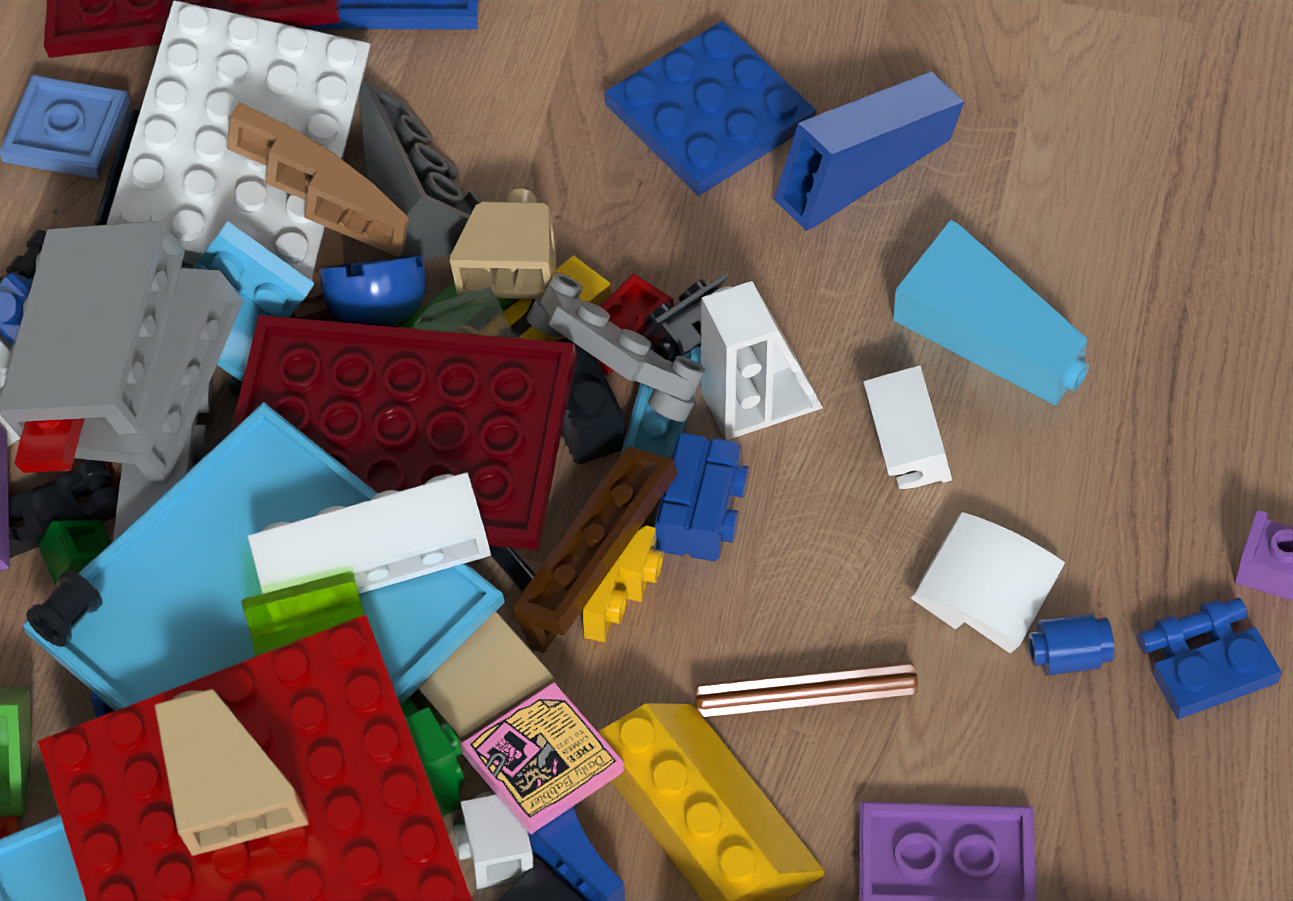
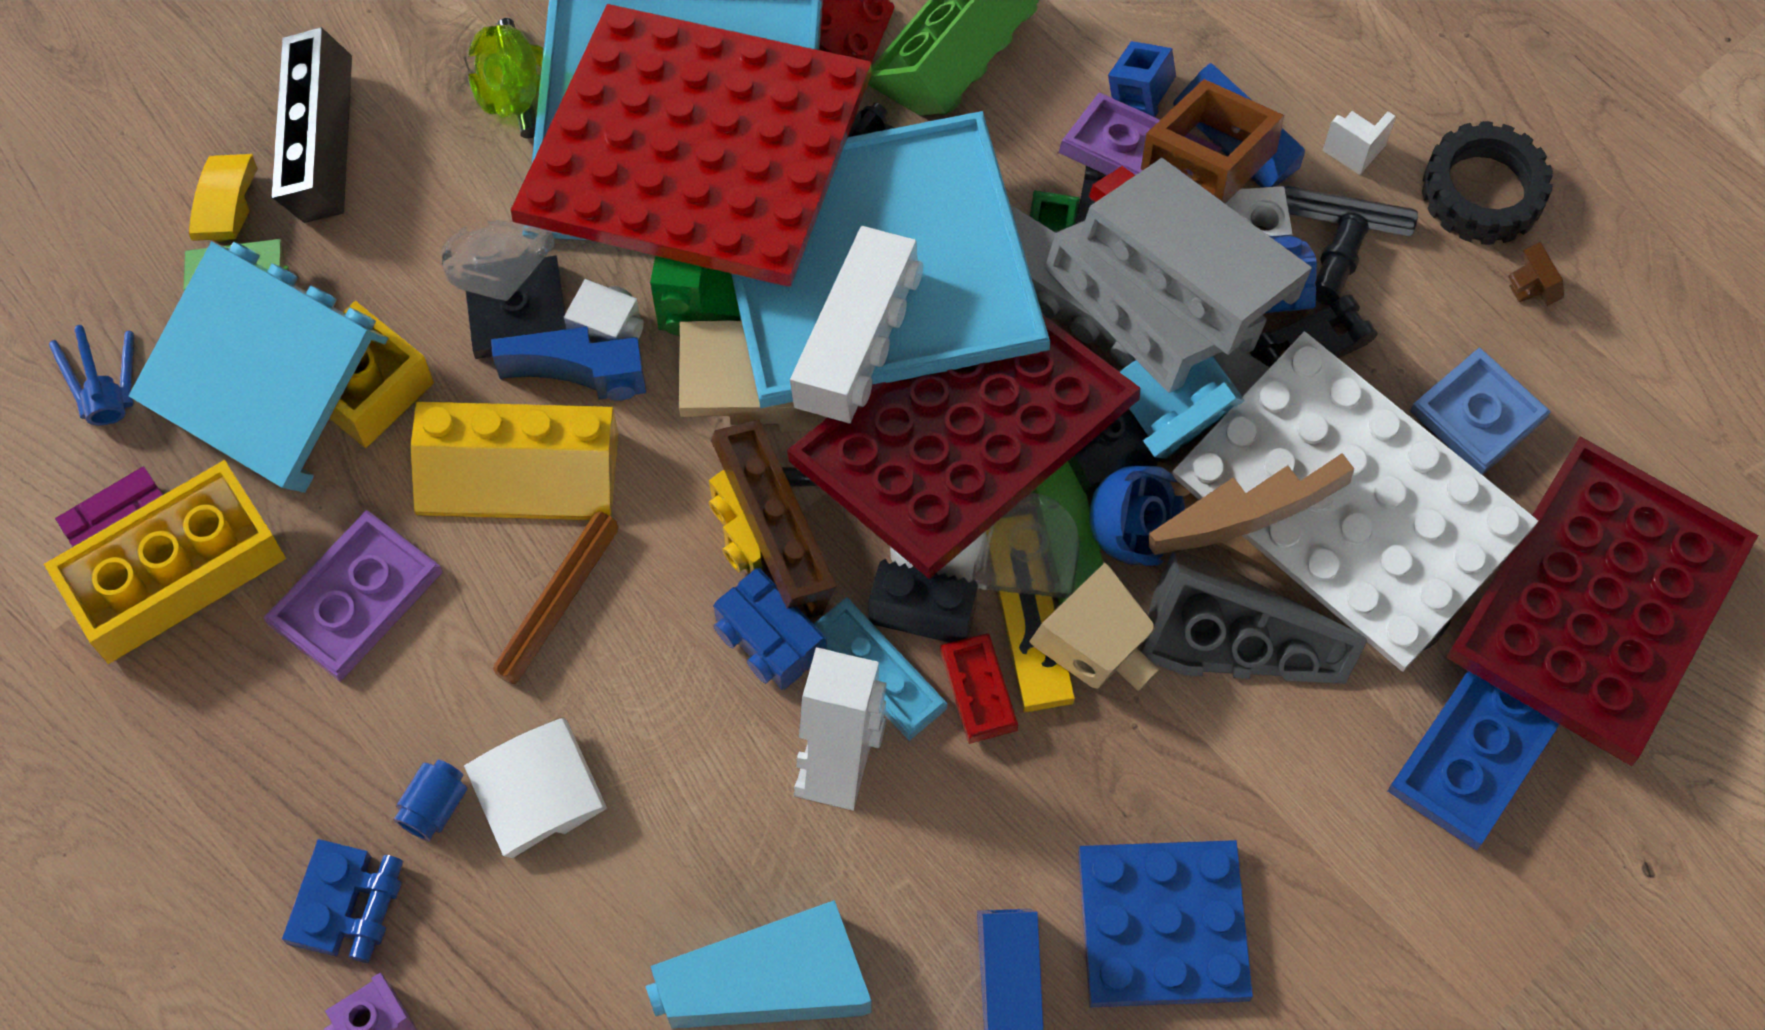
camera: 125 degrees right, 10 degrees up
(64, 608) = (963, 124): black bush -> none
(220, 776) = (729, 113): tan slope -> none
(301, 611) = (824, 258): clear neon green panel -> none
(542, 758) = (621, 359): tile -> none
(624, 351) = (942, 626): light grey plate -> none
(672, 328) = (938, 712): black hinge -> none
(907, 428) = (710, 828): white hinge -> none

